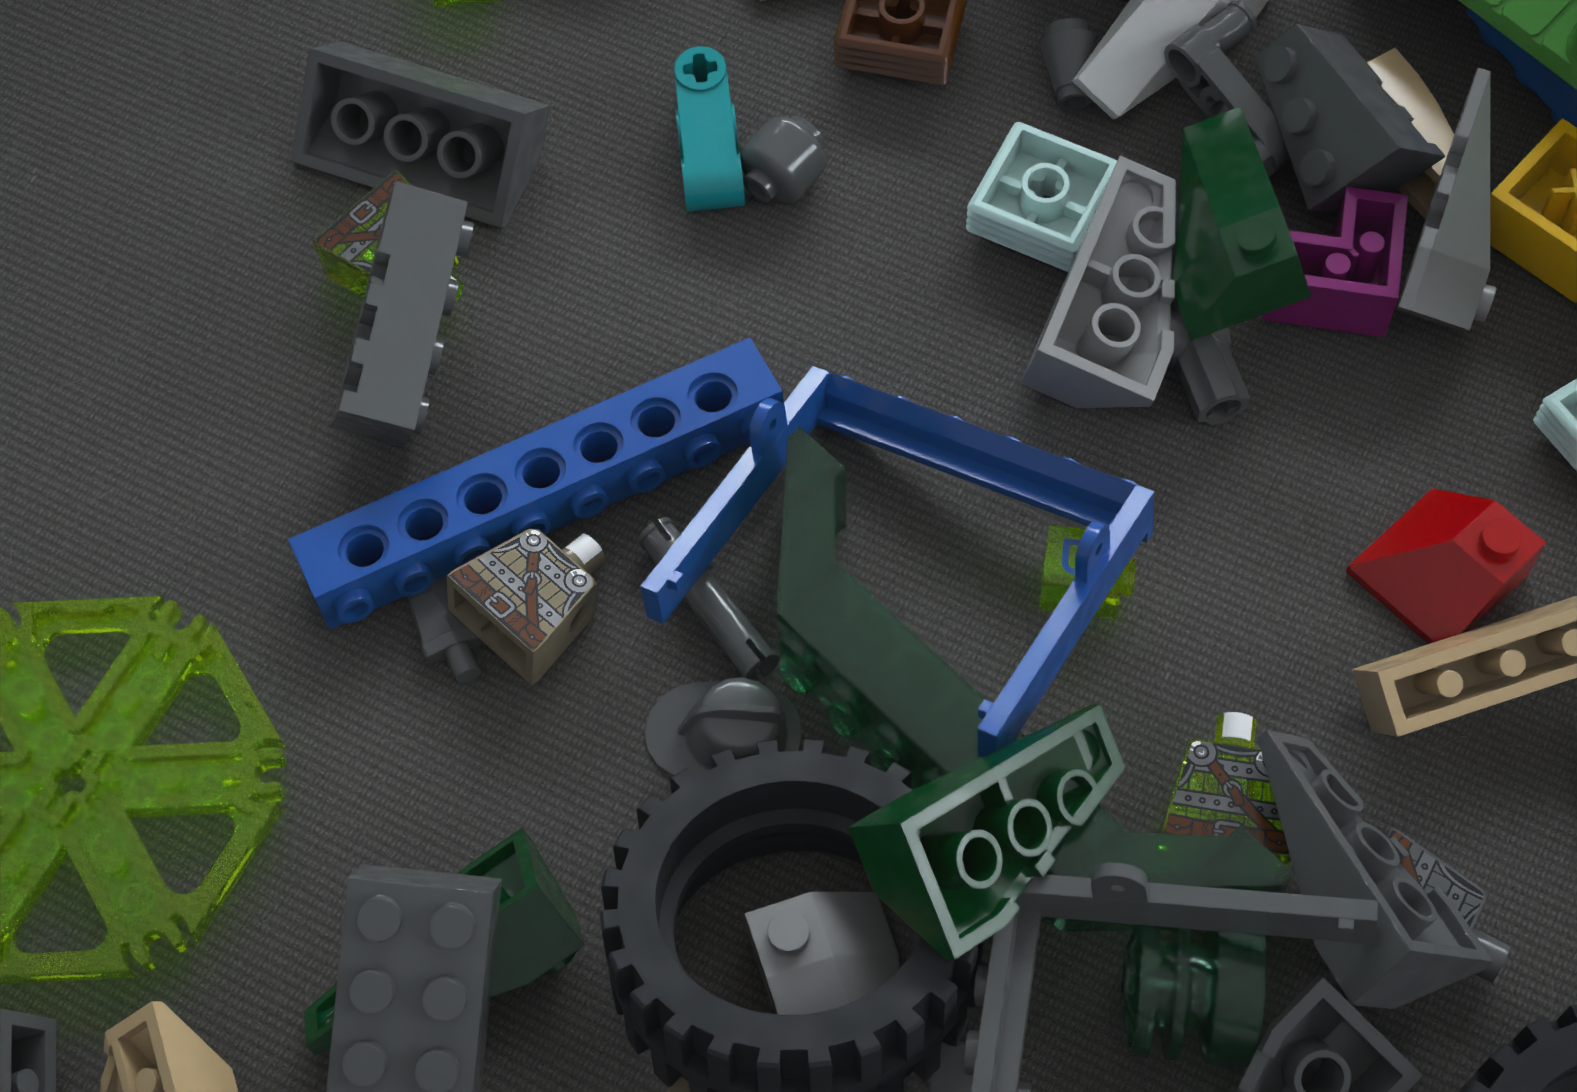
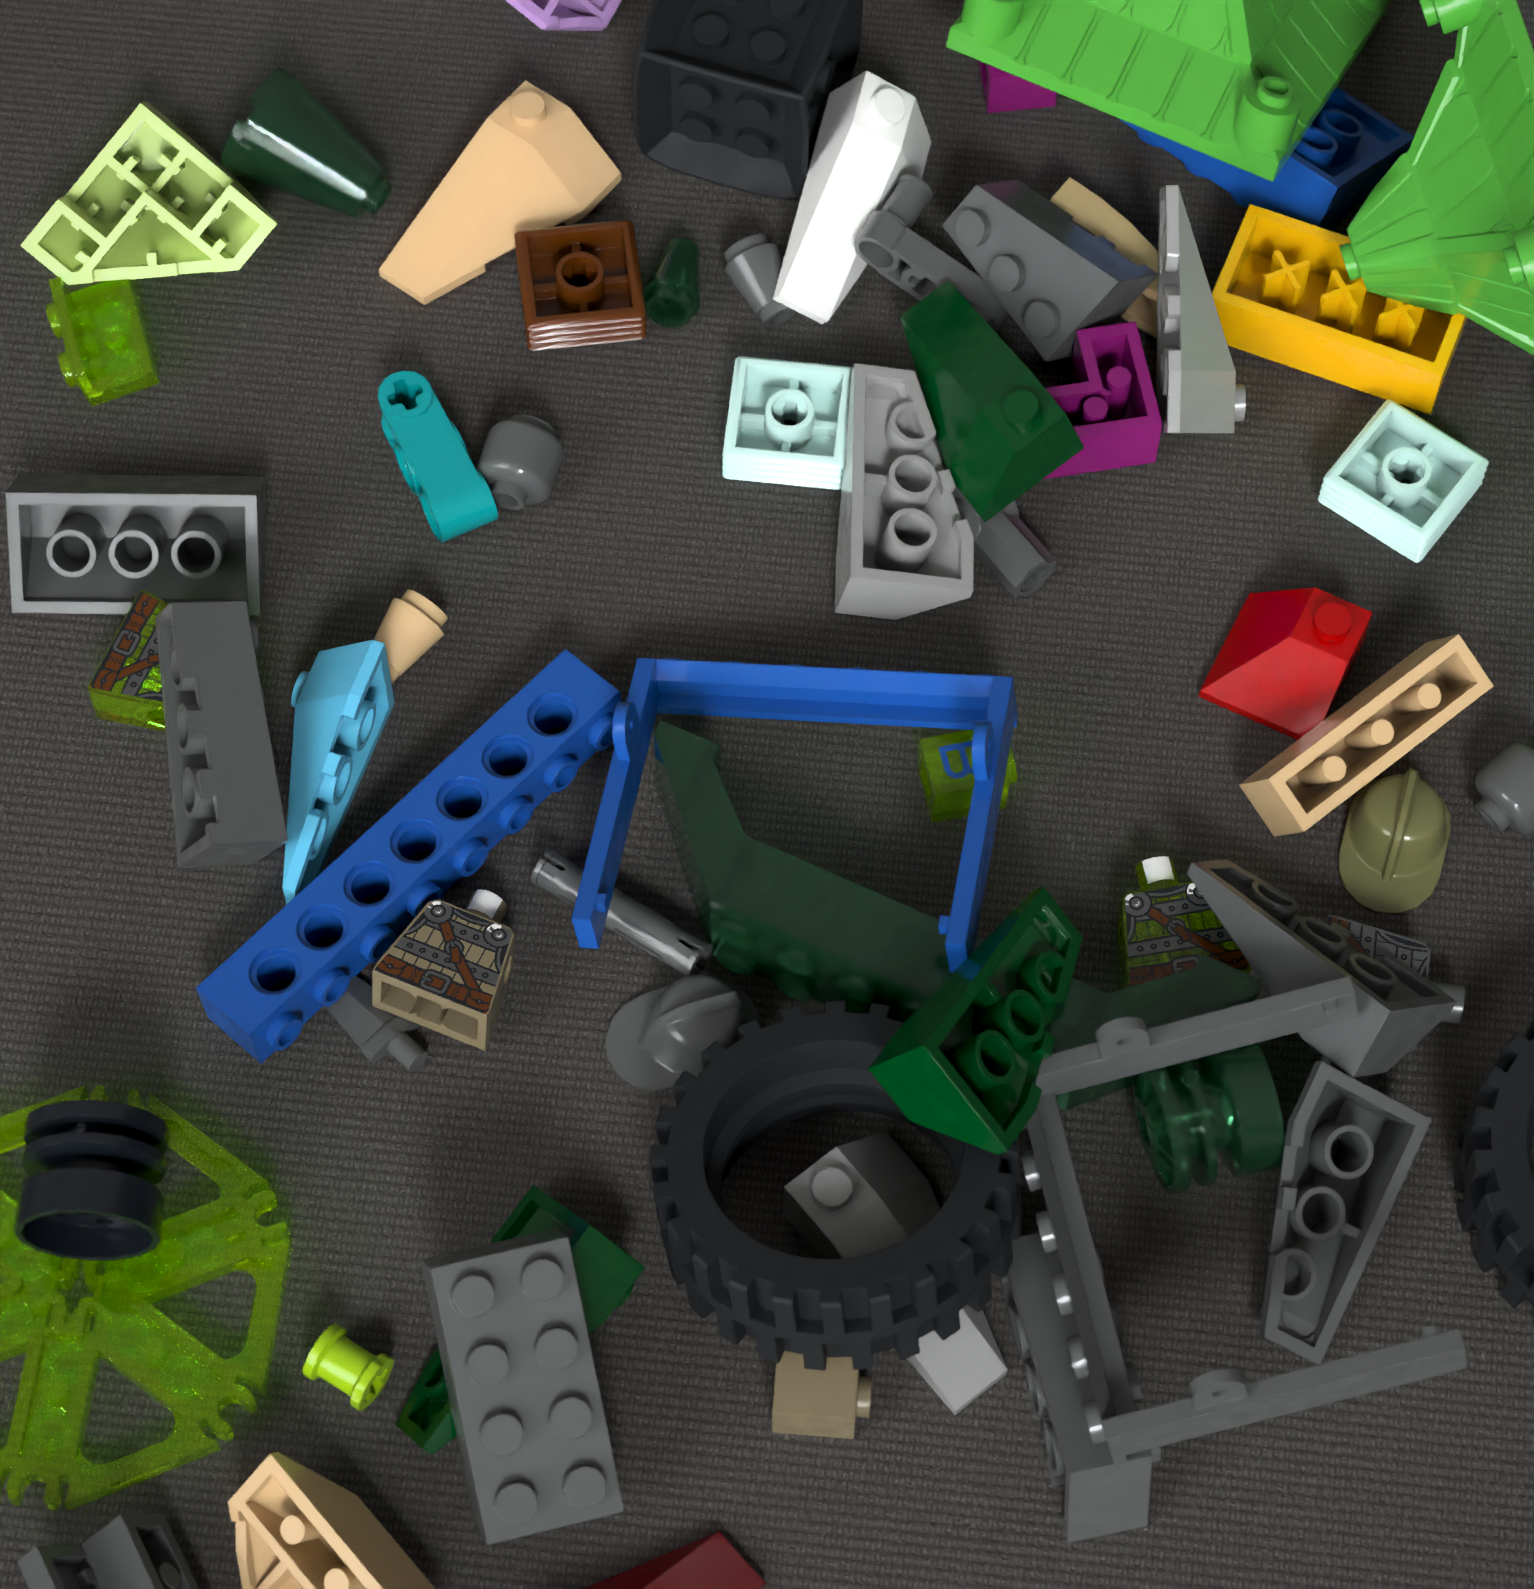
camera: 25 degrees left, 0 degrees up
(108, 684) = (92, 1180): none -> black wheel
(279, 940) = (348, 1366): none -> lime bush
(512, 356) = (335, 732): none -> medium azure wedge
(616, 283) = (409, 630): none -> tan cone
(987, 46) = (674, 285): none -> clear green cone
(1491, 779) = (1394, 843): none -> olive piece

